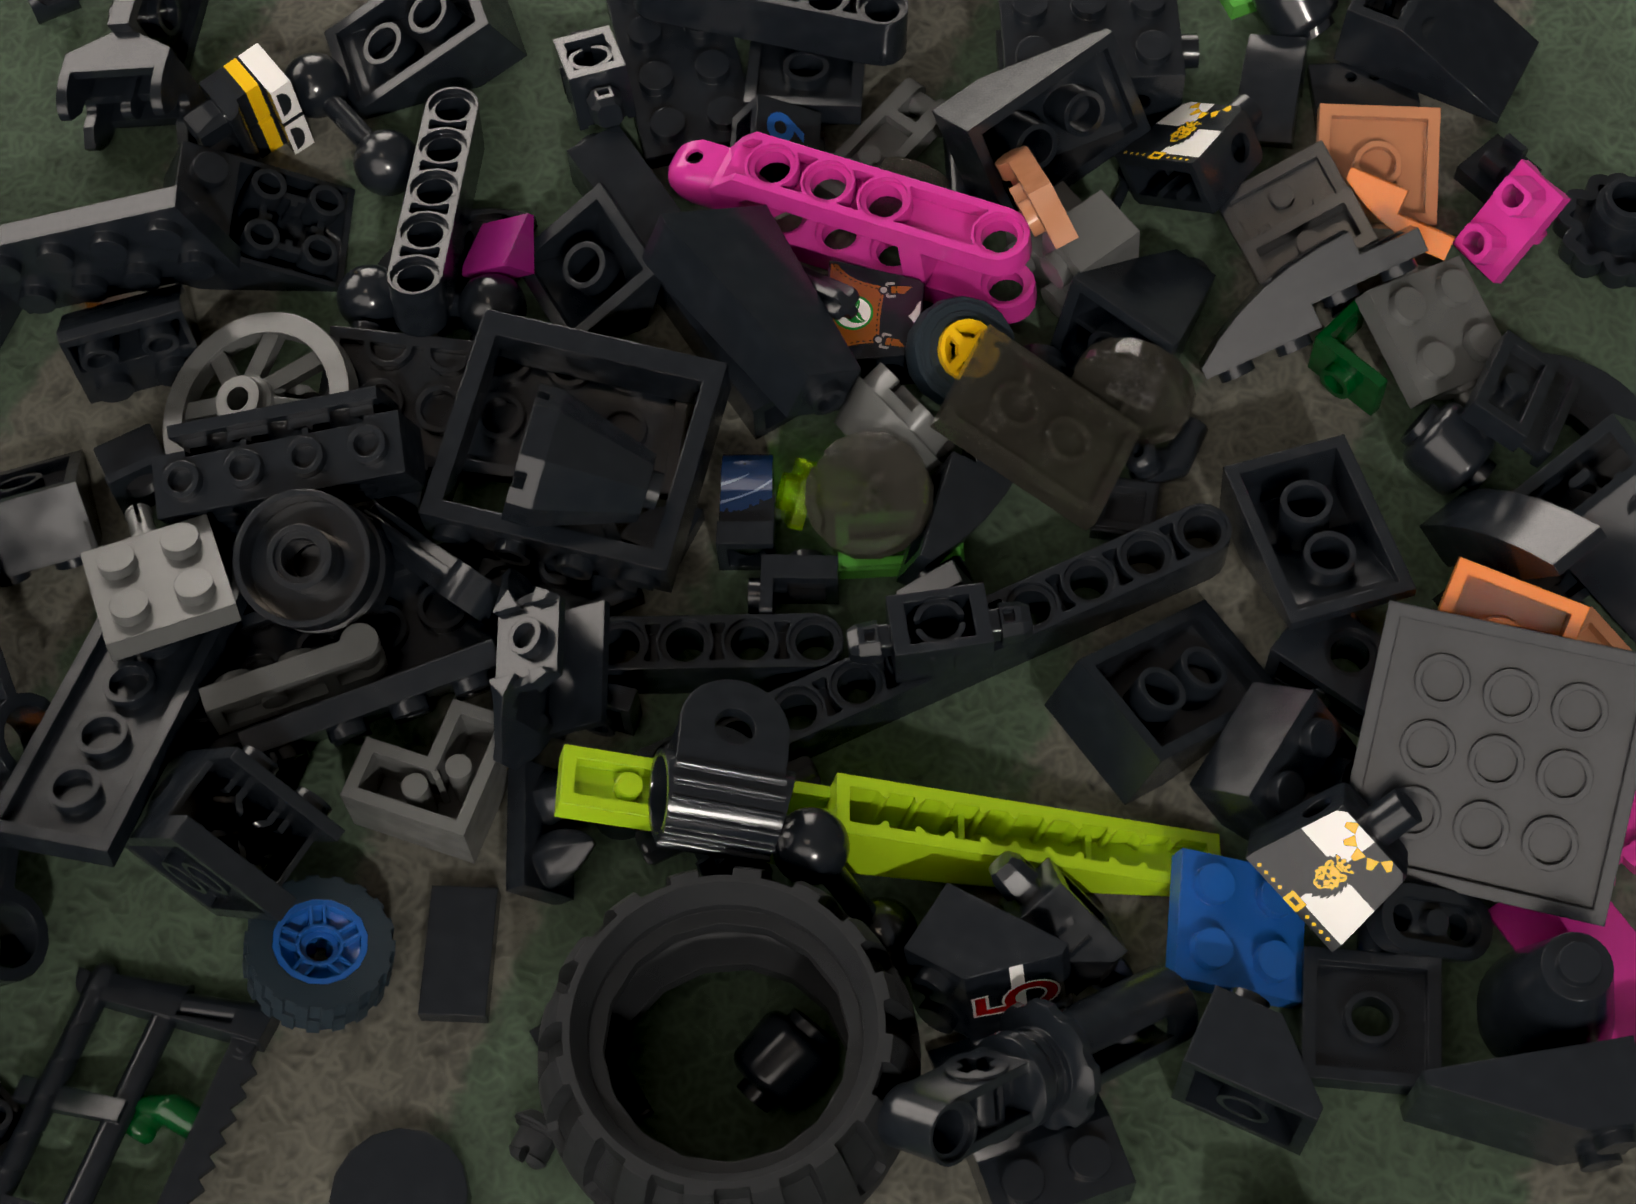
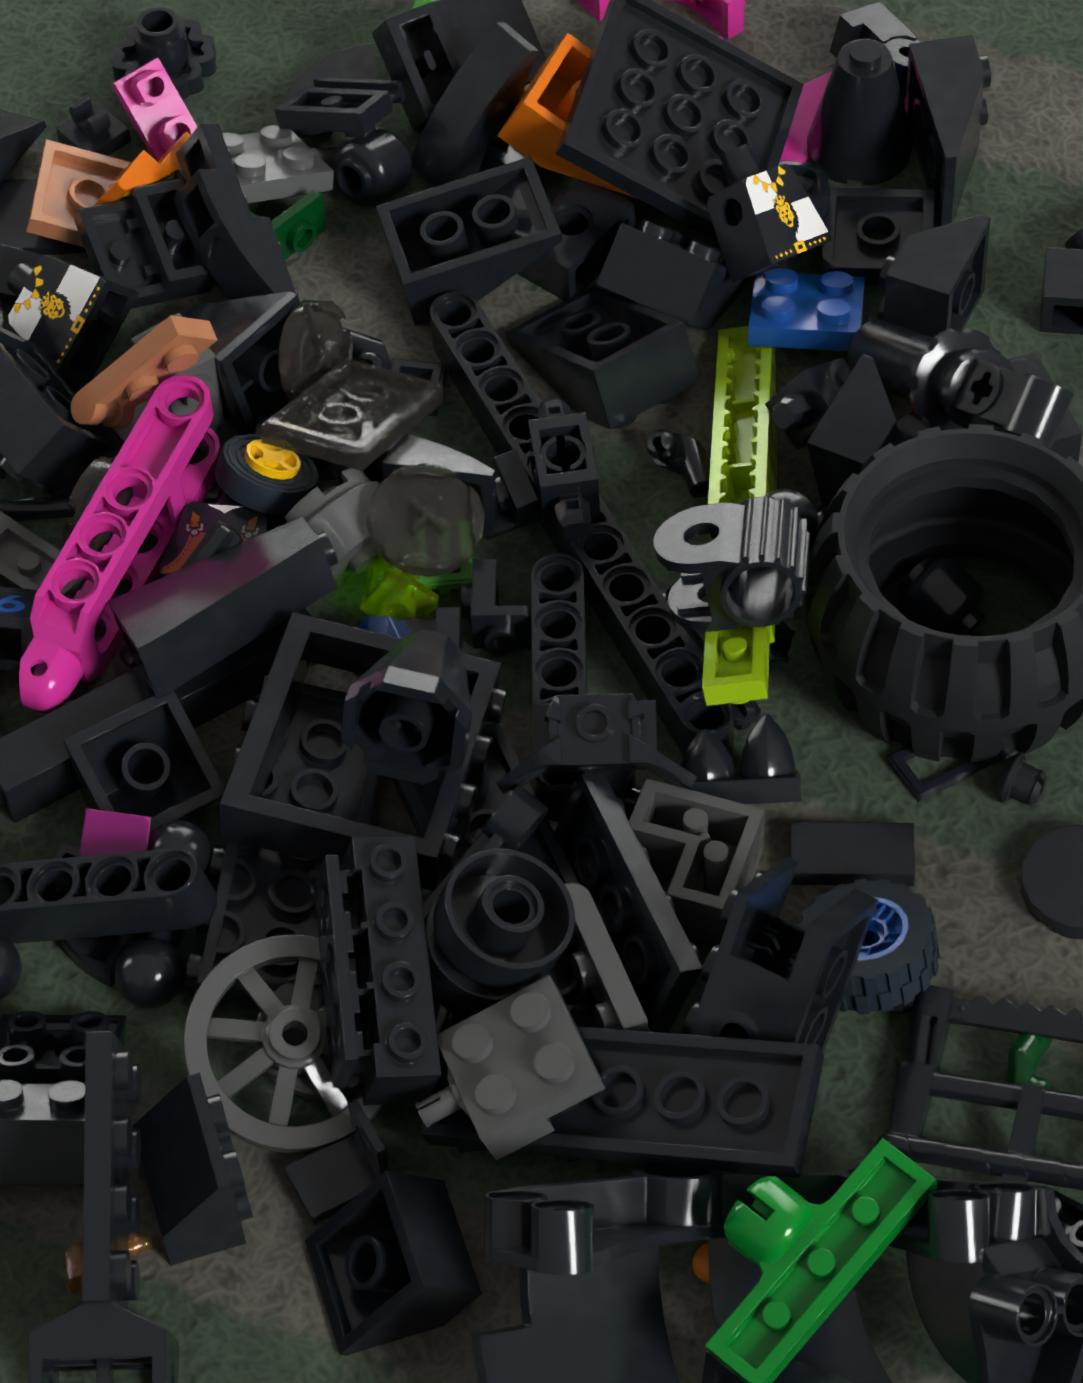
camera: 90 degrees left, 10 degrees down
(1024, 778) = (681, 456): none -> black arm

